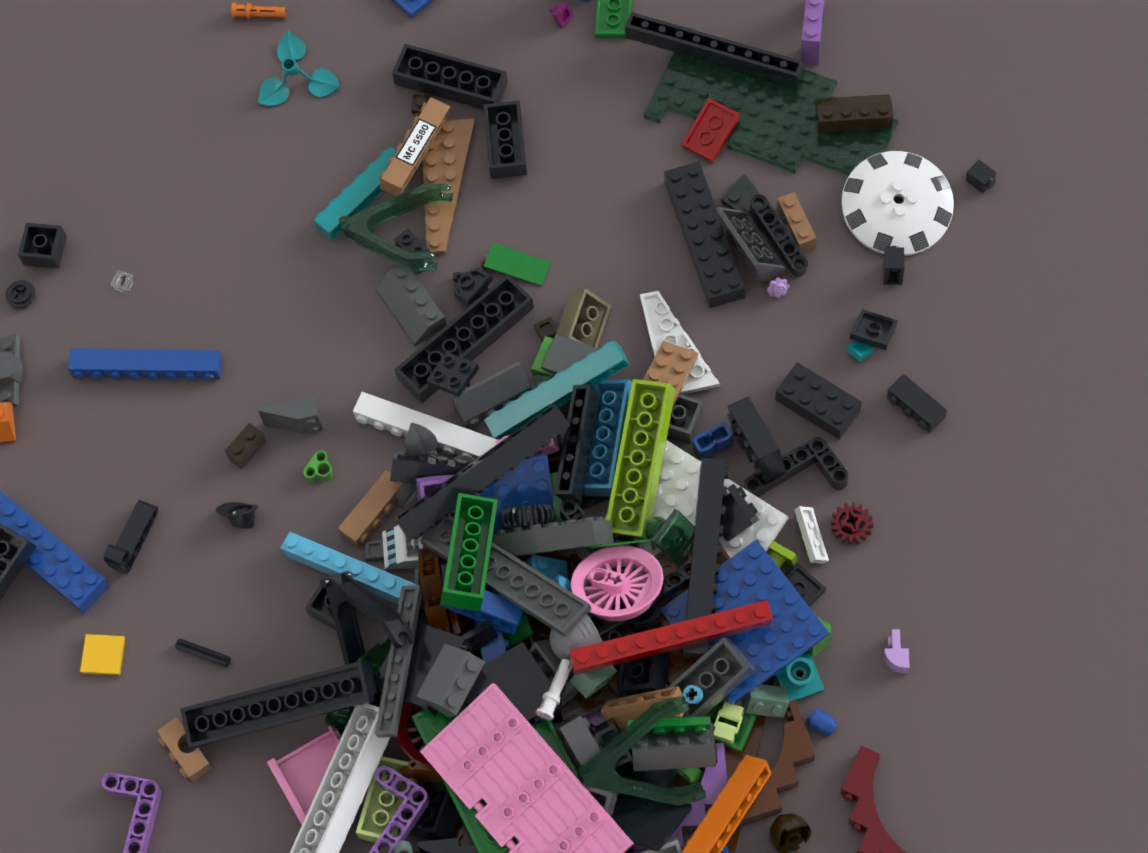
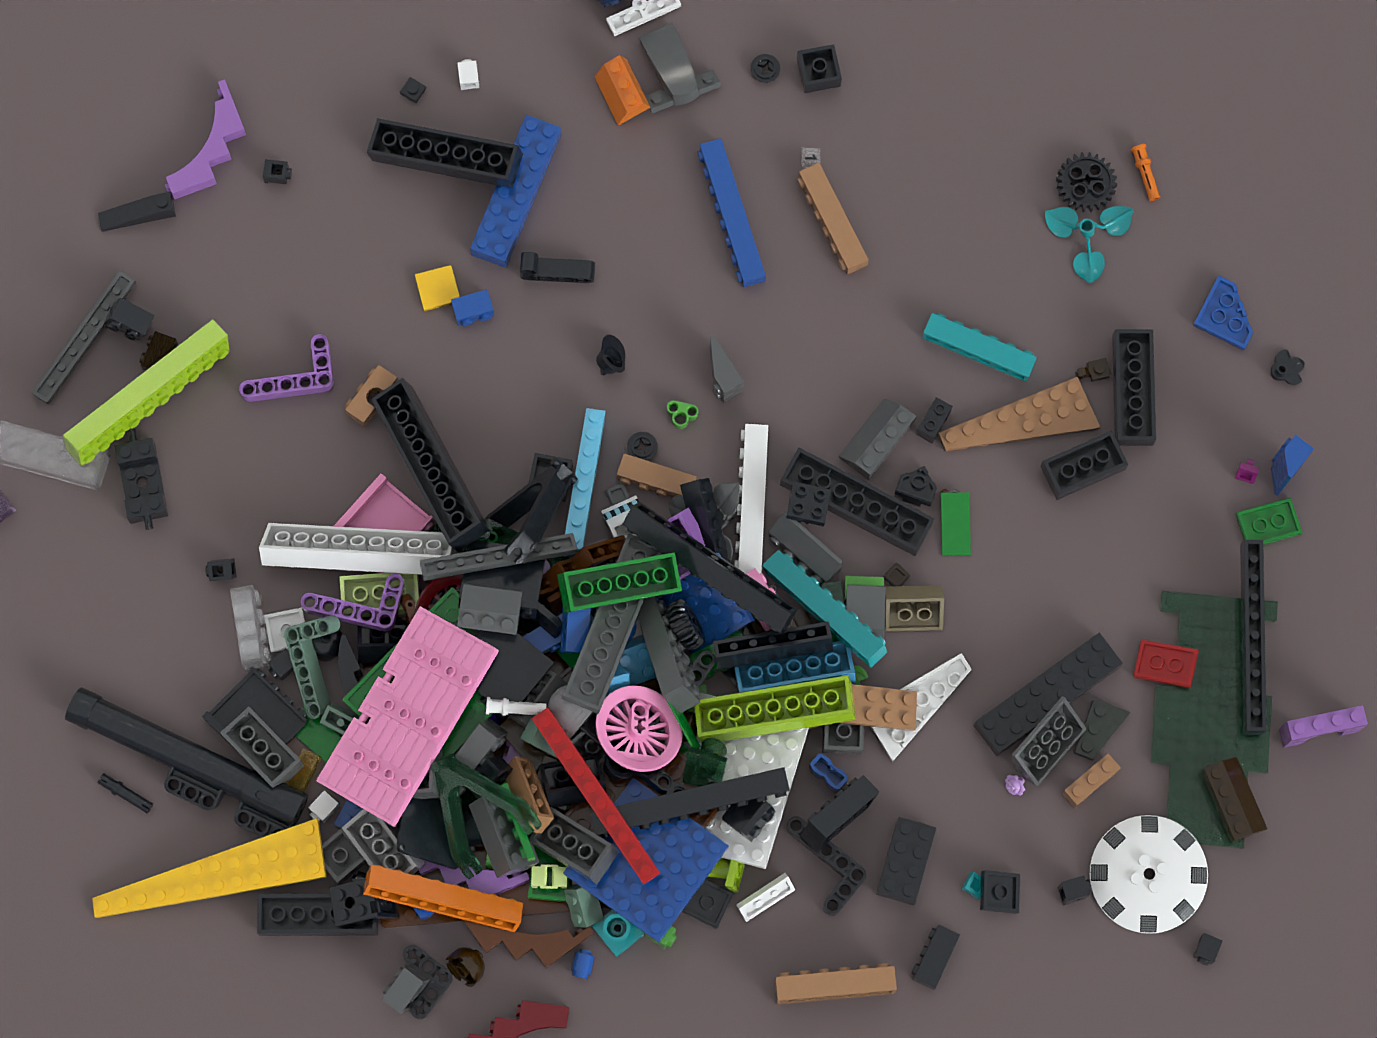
camera: 60 degrees right, 10 degrees up
(136, 626) = (472, 308): none -> blue brick
(188, 278) = (833, 218): none -> medium nougat brick
(202, 652) = (468, 376): black axle -> none
(245, 445) = (679, 337): dark brown brick -> none
(262, 62) = (1083, 166): none -> black gear
(331, 507) = (647, 439): none -> black gear
(361, 226) = (942, 362): clear green piece -> none
(415, 146) = (1041, 381): medium nougat brick -> none
(697, 699) = (546, 832): medium azure bush -> none
(778, 243) = (1071, 757): black beam -> none
(844, 525) = (782, 921): dark red gear -> none
(895, 656) = (668, 1015): lavender brick -> none
(914, 496) = (835, 985): none -> medium nougat brick

